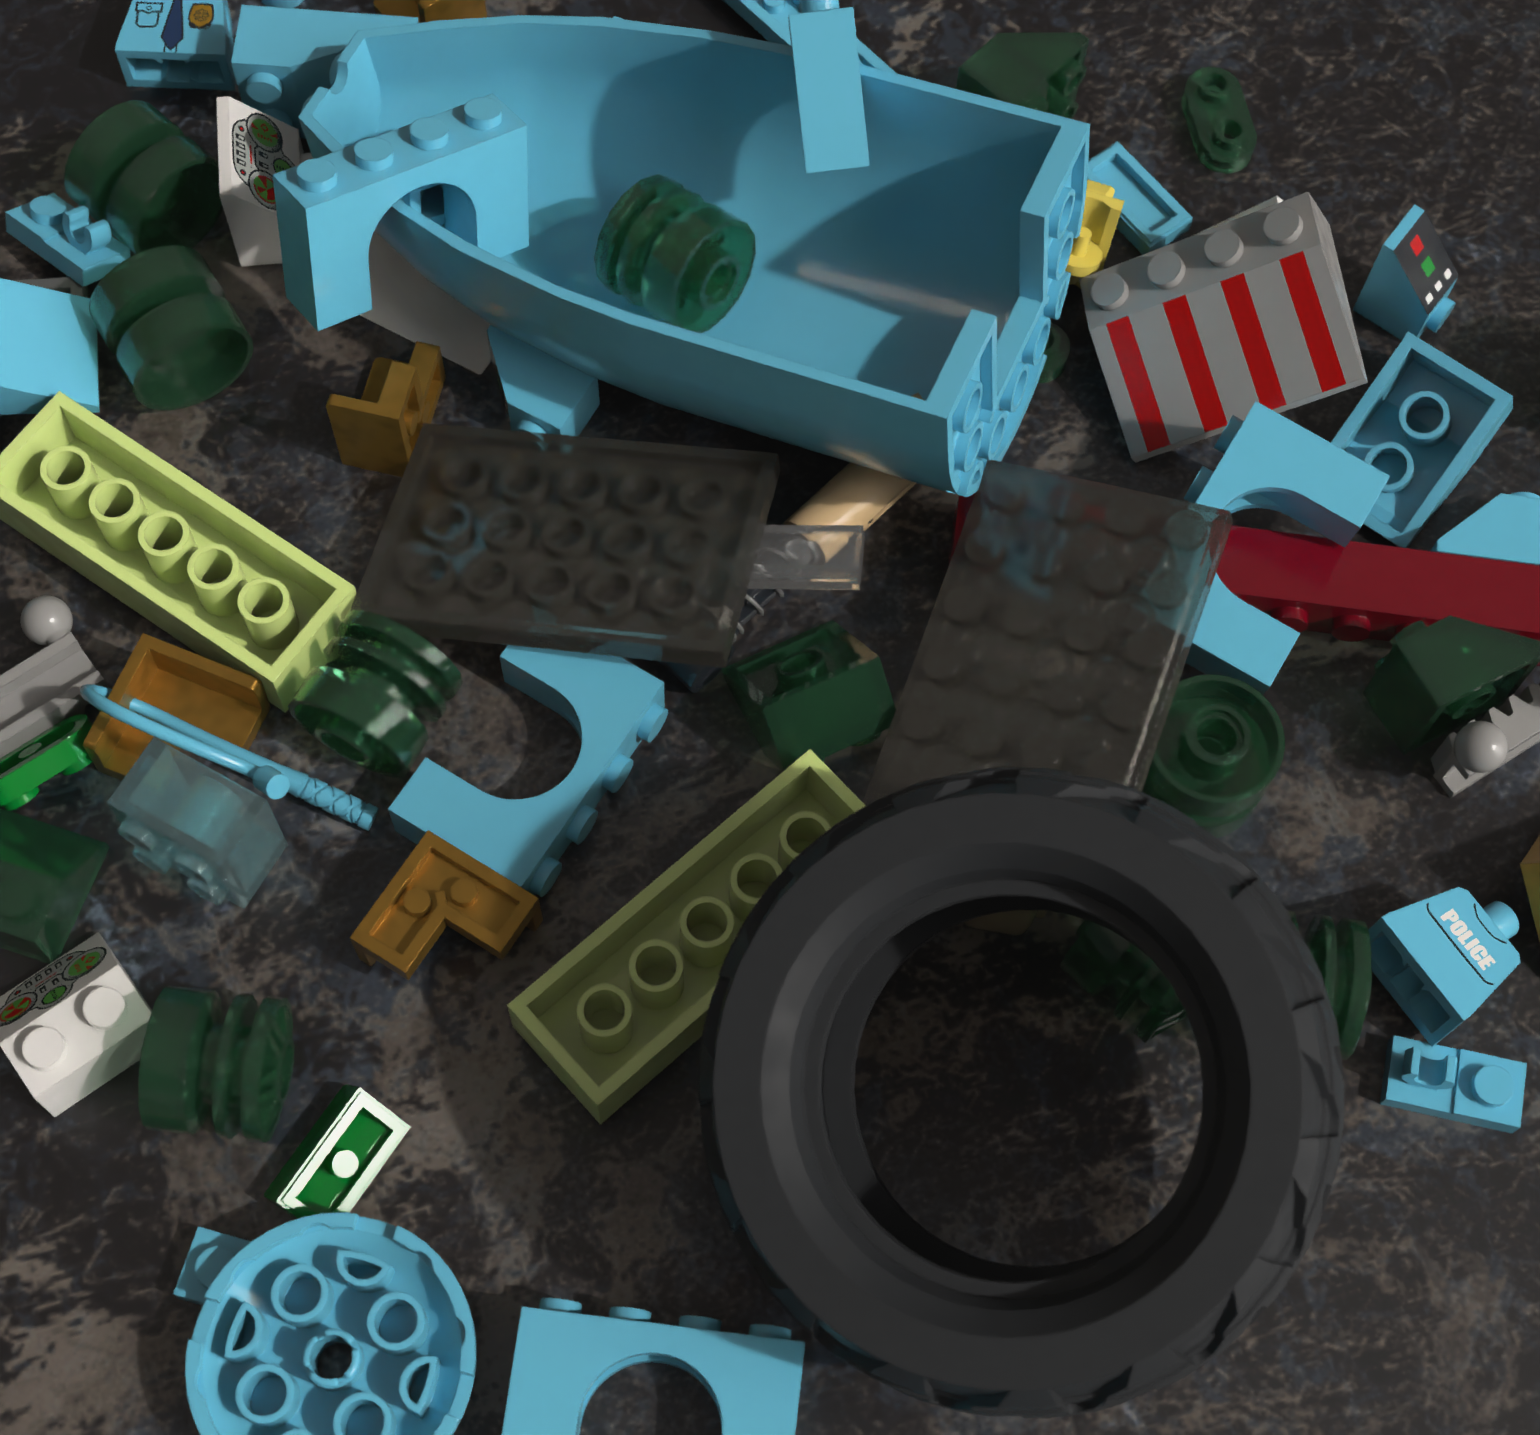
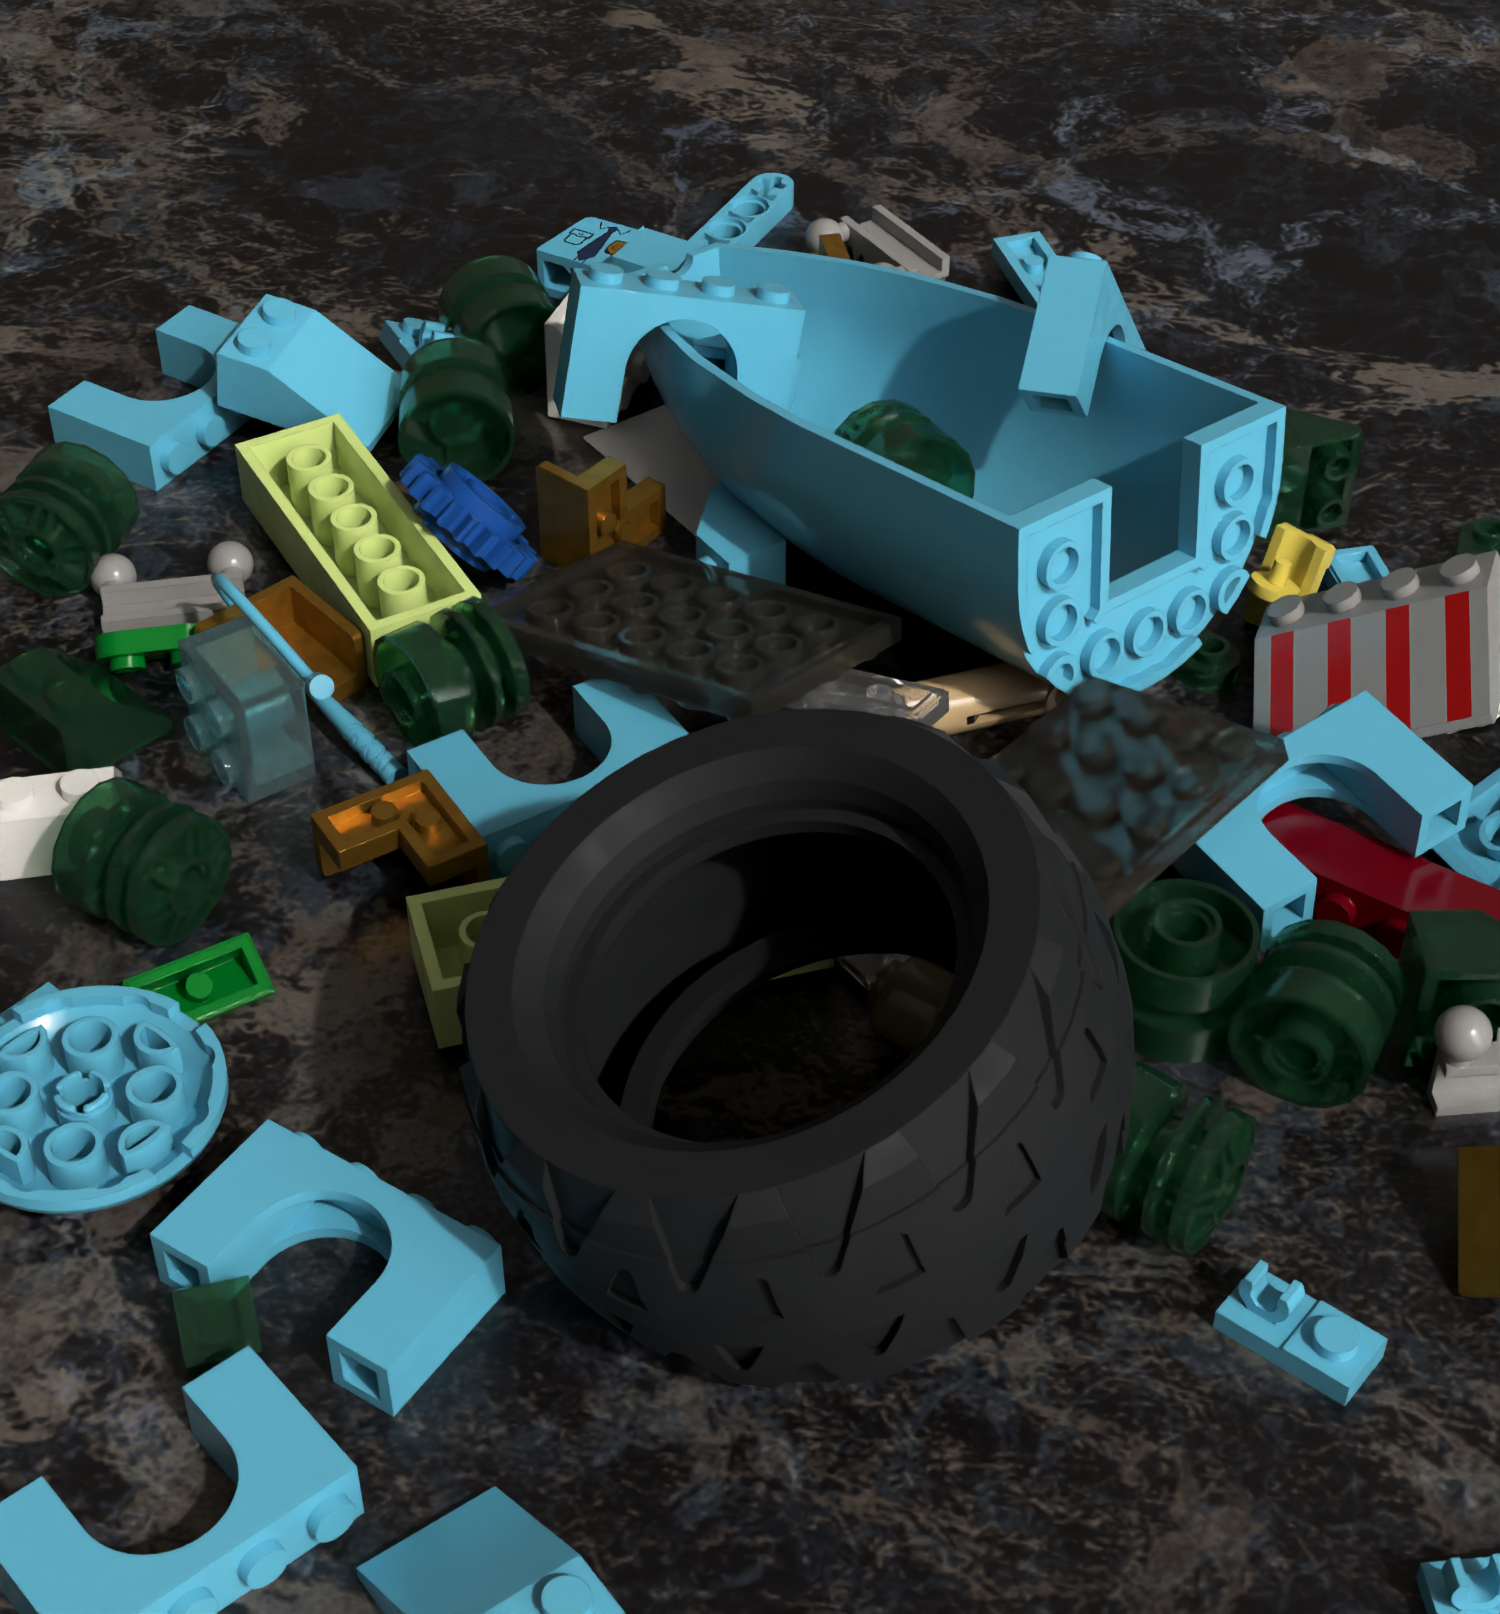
camera: 30 degrees right, 25 degrees down
(274, 478) = (468, 517): none -> blue gear
(1345, 762) = (1317, 1013): none -> clear green wheel
(1443, 957) = (1339, 1209): medium azure torso -> none

